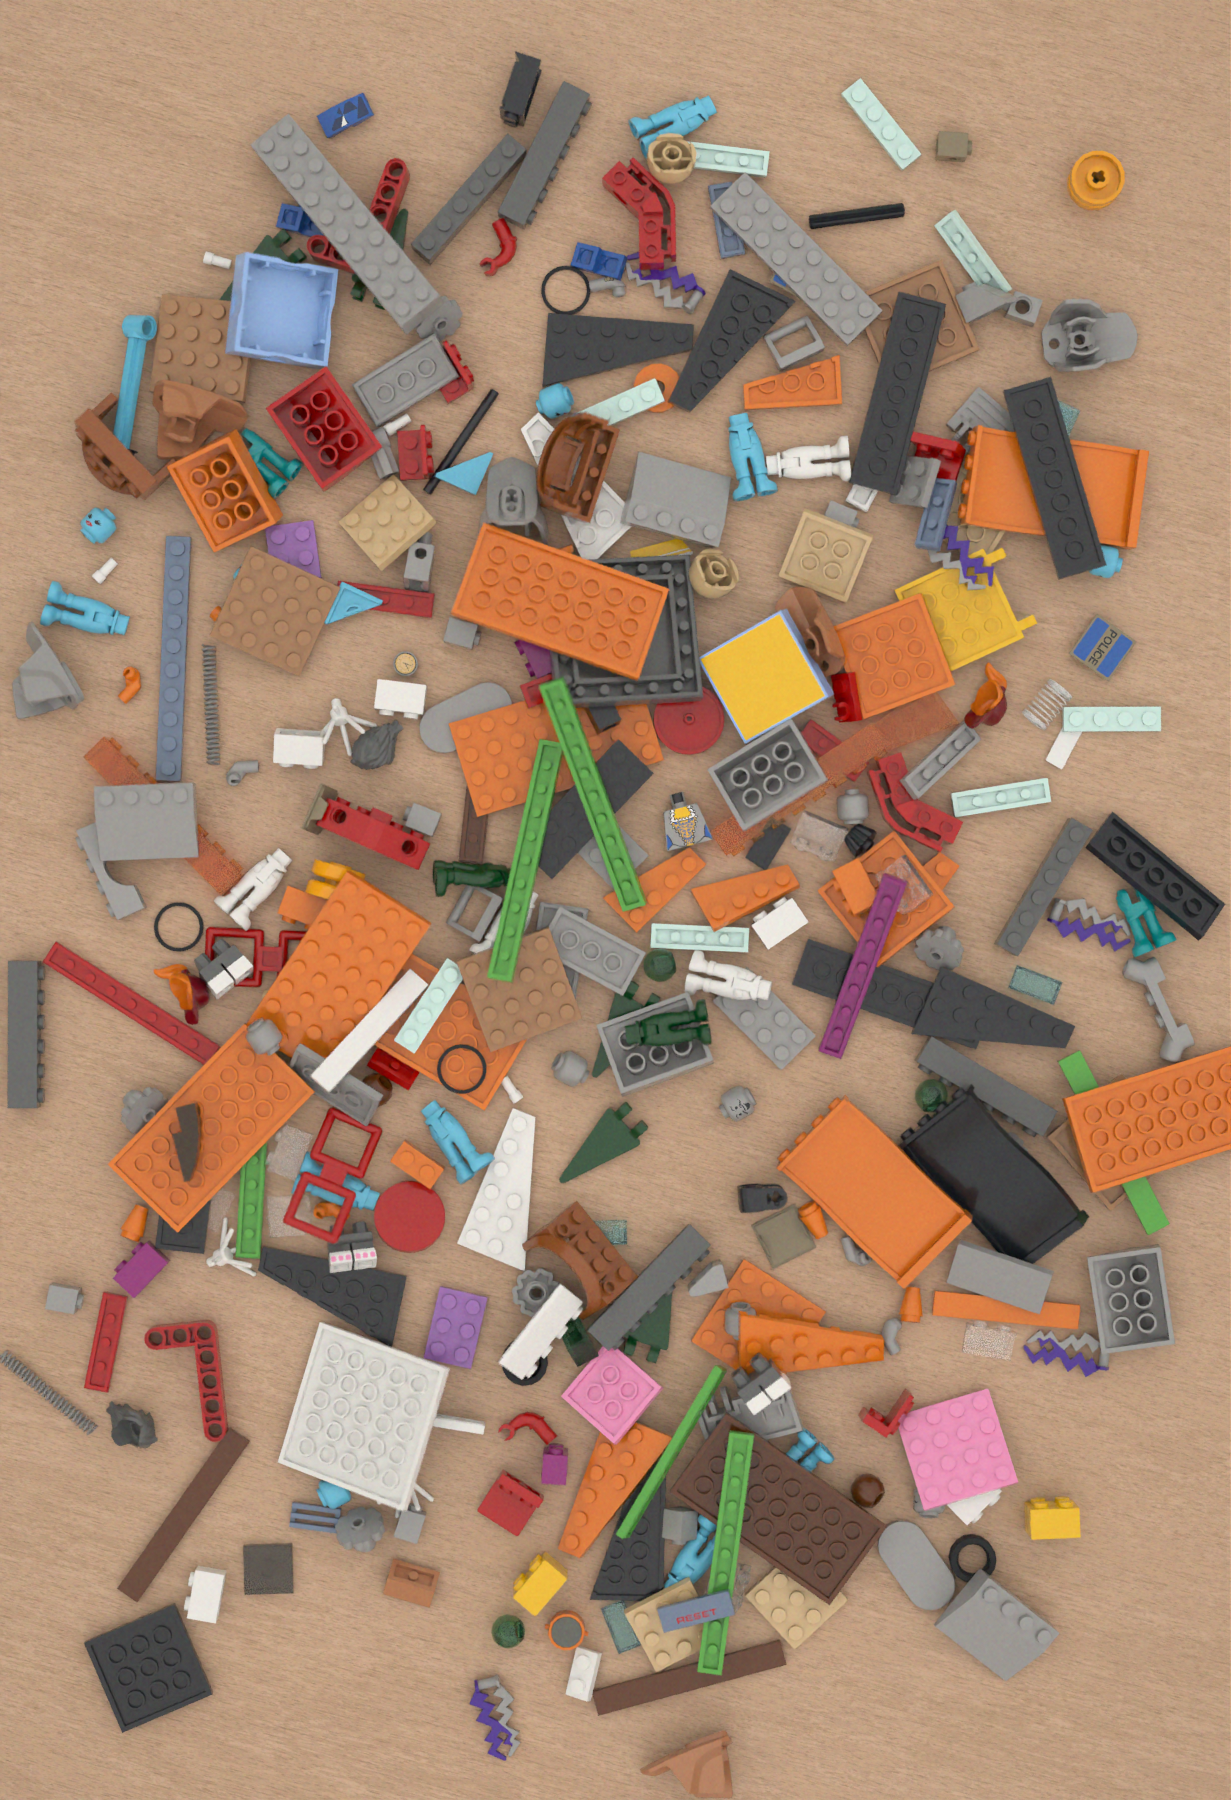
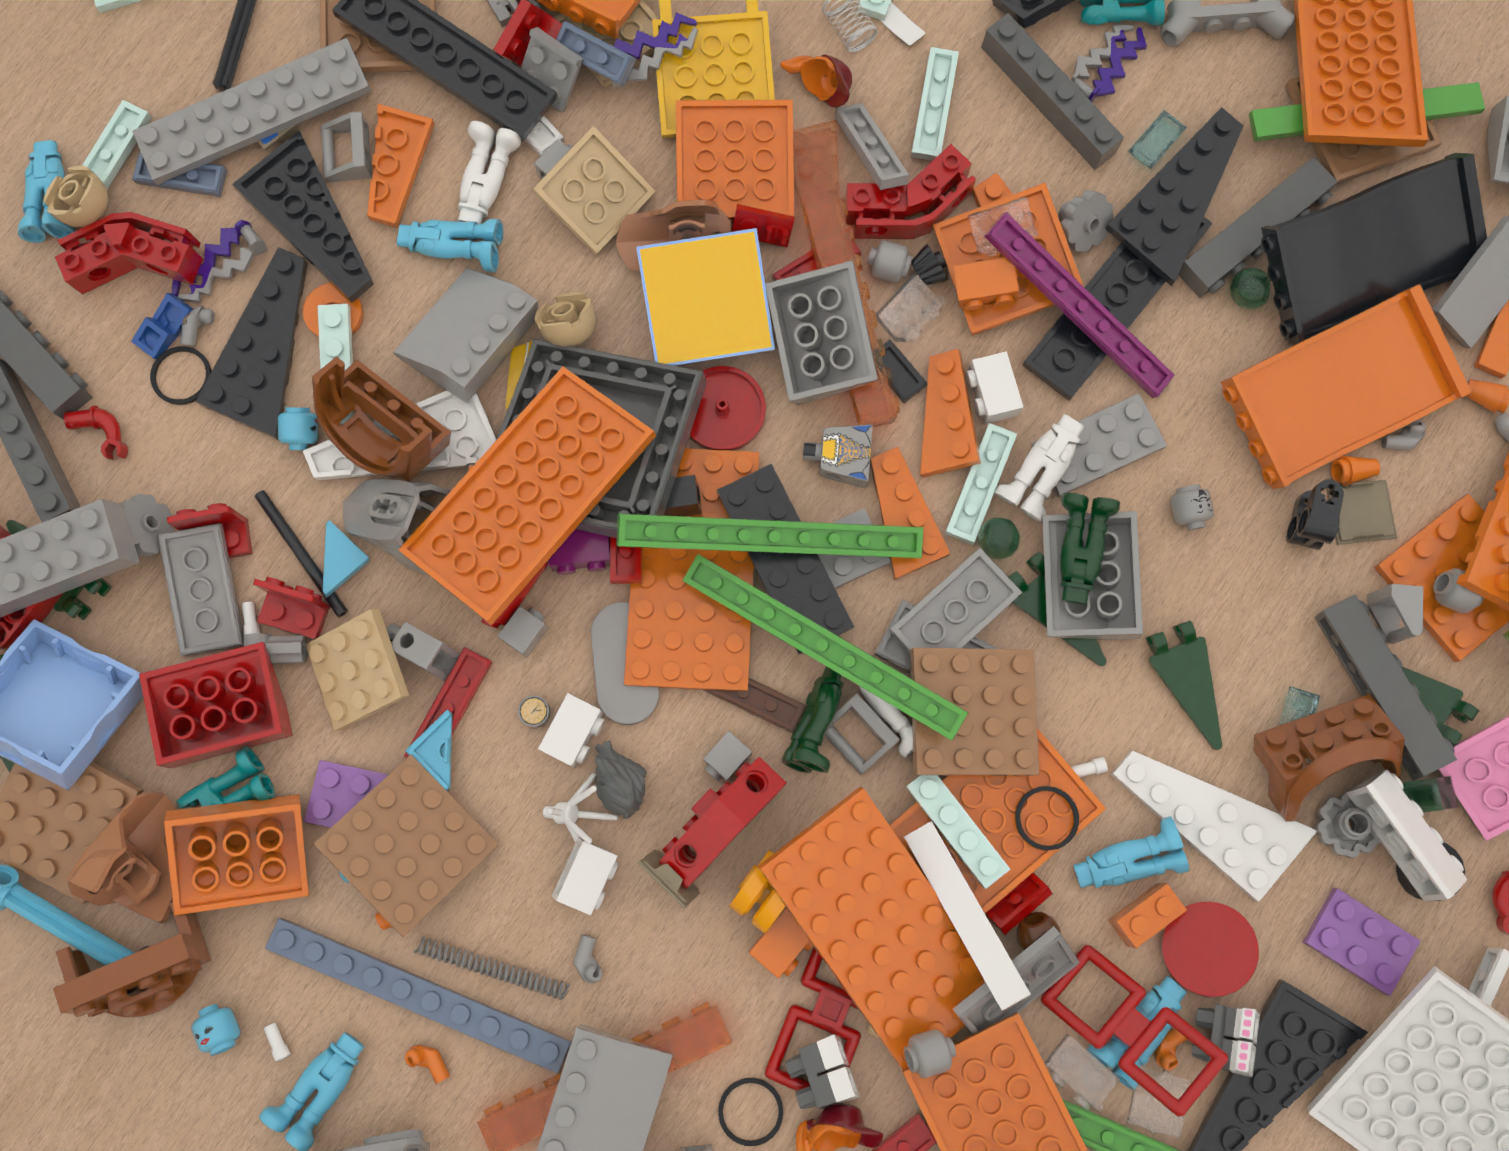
camera: 75 degrees left, 10 degrees down
(264, 877) = (728, 978): white piece -> none
(570, 1068) = (1087, 687): light grey head -> none

